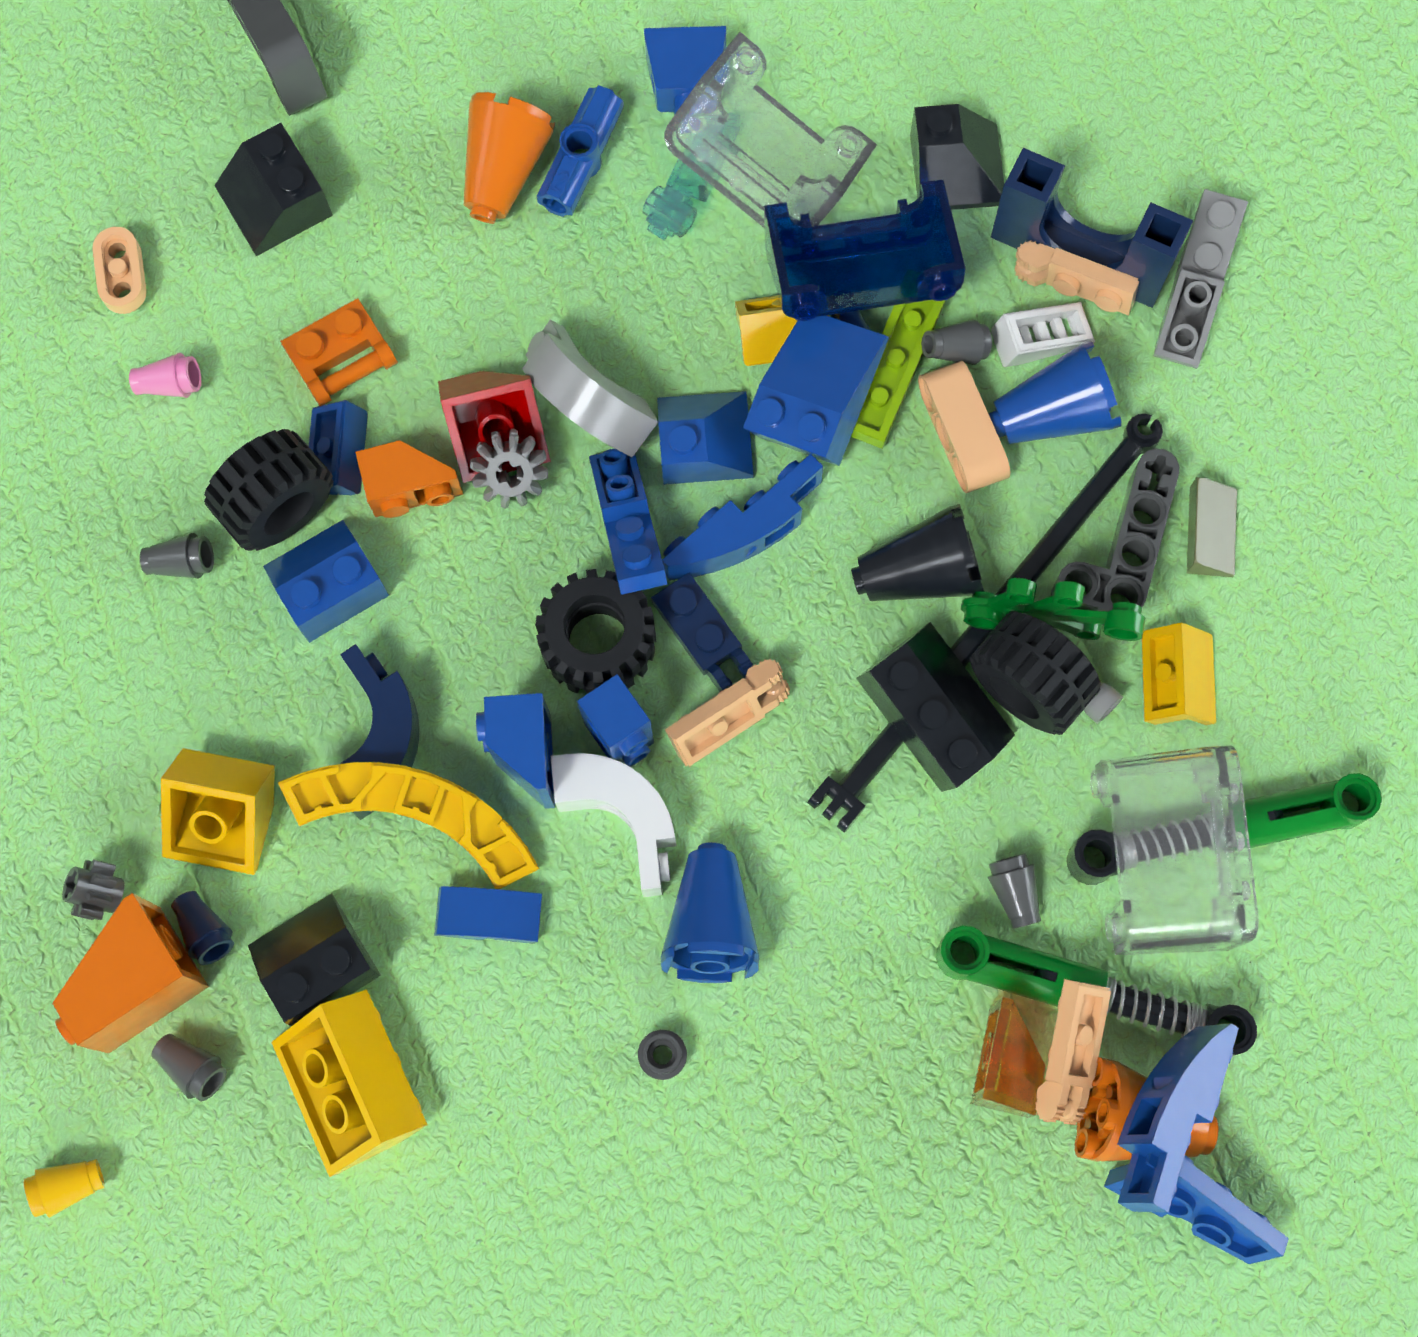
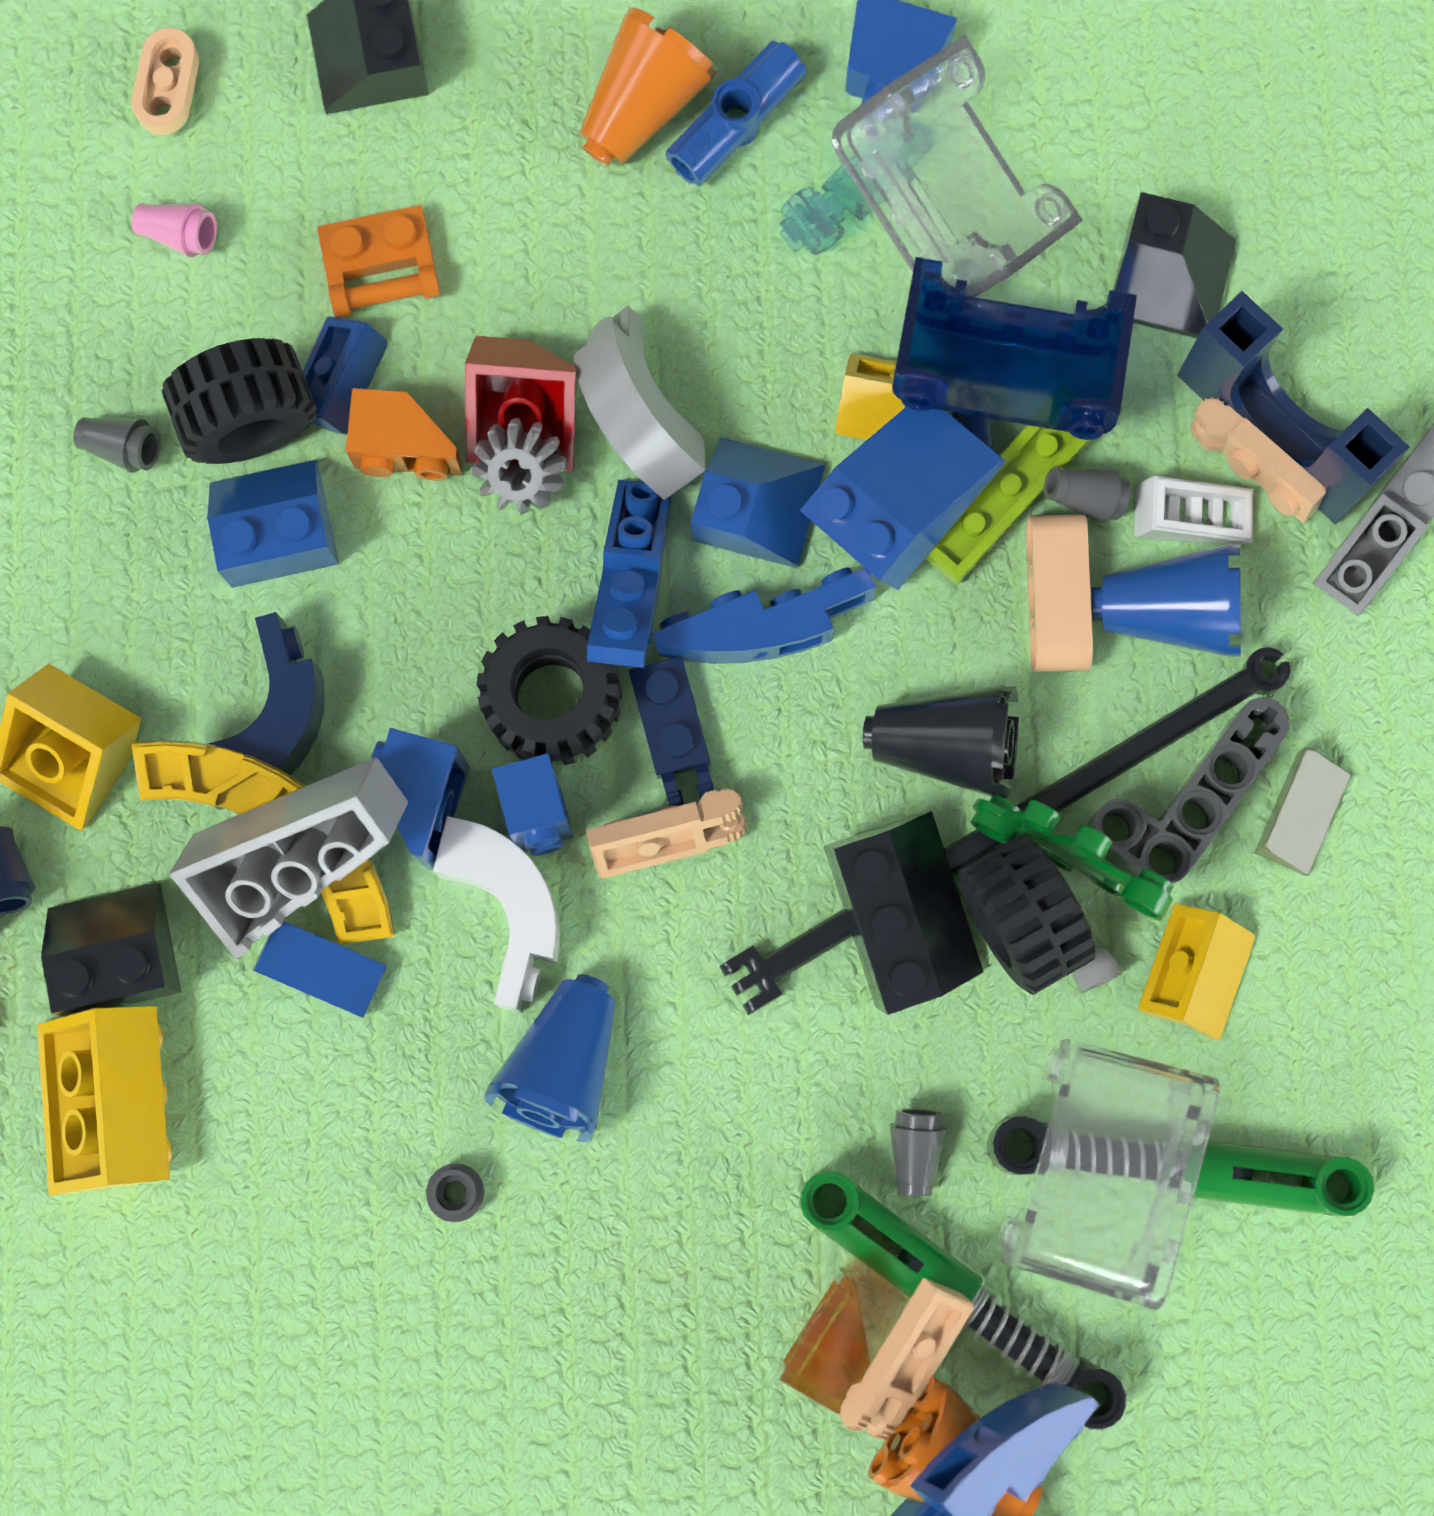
camera: 20 degrees right, 5 degrees up
(434, 823) = (283, 853): none -> light grey wedge

